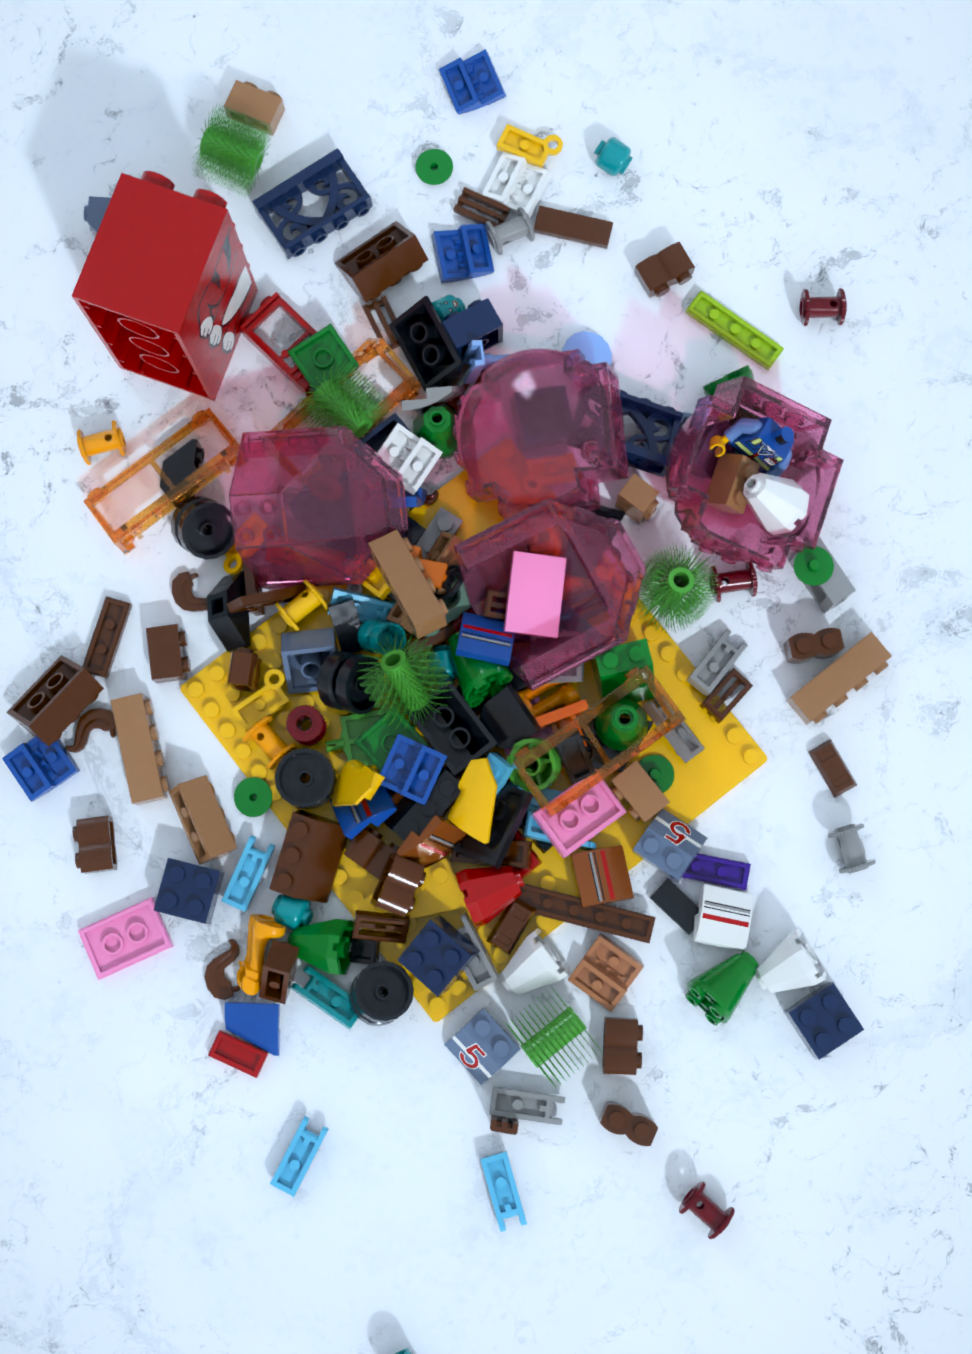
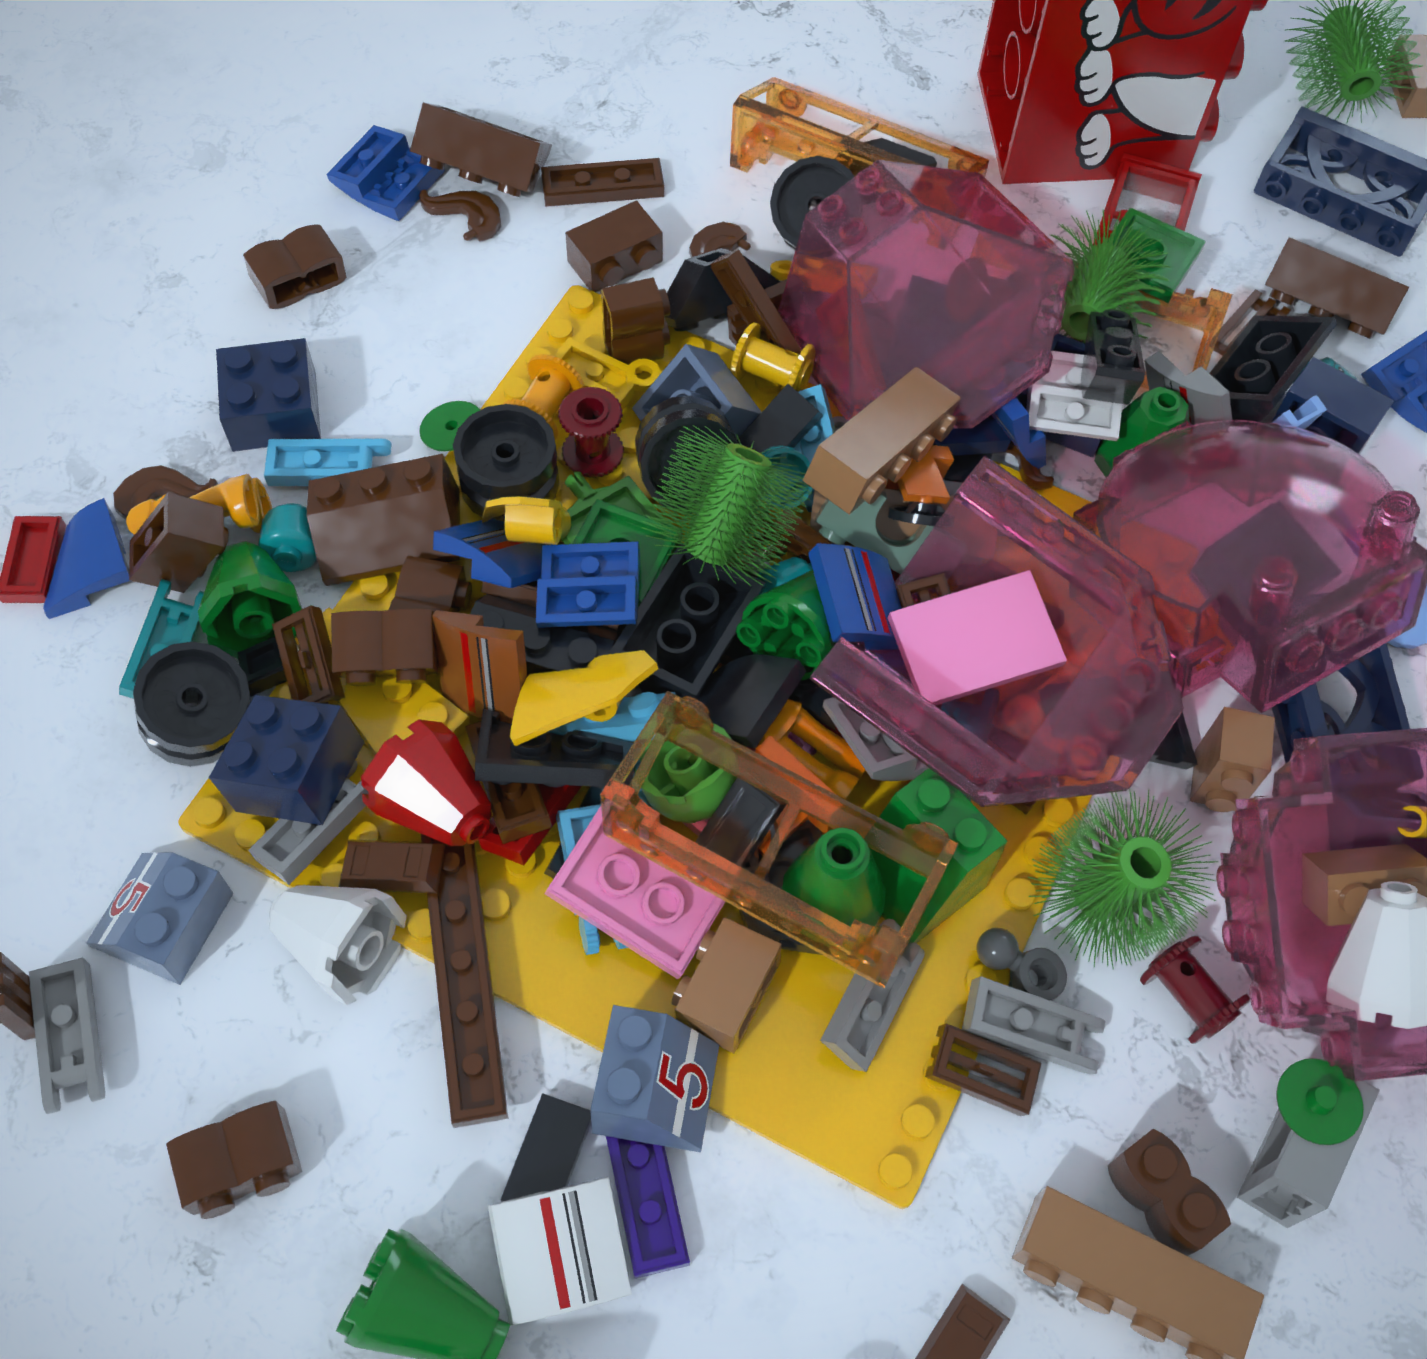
camera: 60 degrees right, 20 degrees down
(100, 442) = (876, 85): light orange hose -> none
(125, 938) = (164, 354): bright pink tile -> none
(139, 749) = (457, 265): medium nougat brick -> none
(203, 819) = (386, 371): medium nougat brick -> none
(402, 433) = (1112, 358): none -> black slope
(552, 1038) = (200, 1010): bright green piece -> none
(602, 876) = (544, 984): dark orange slope -> none
(606, 972) = (370, 1076): nougat slope -> none
(620, 1121) = (78, 1254): reddish brown brick -> none
(659, 771) = (783, 1011): green piece -> none
(678, 659) = (1000, 950): none -> dark grey plate

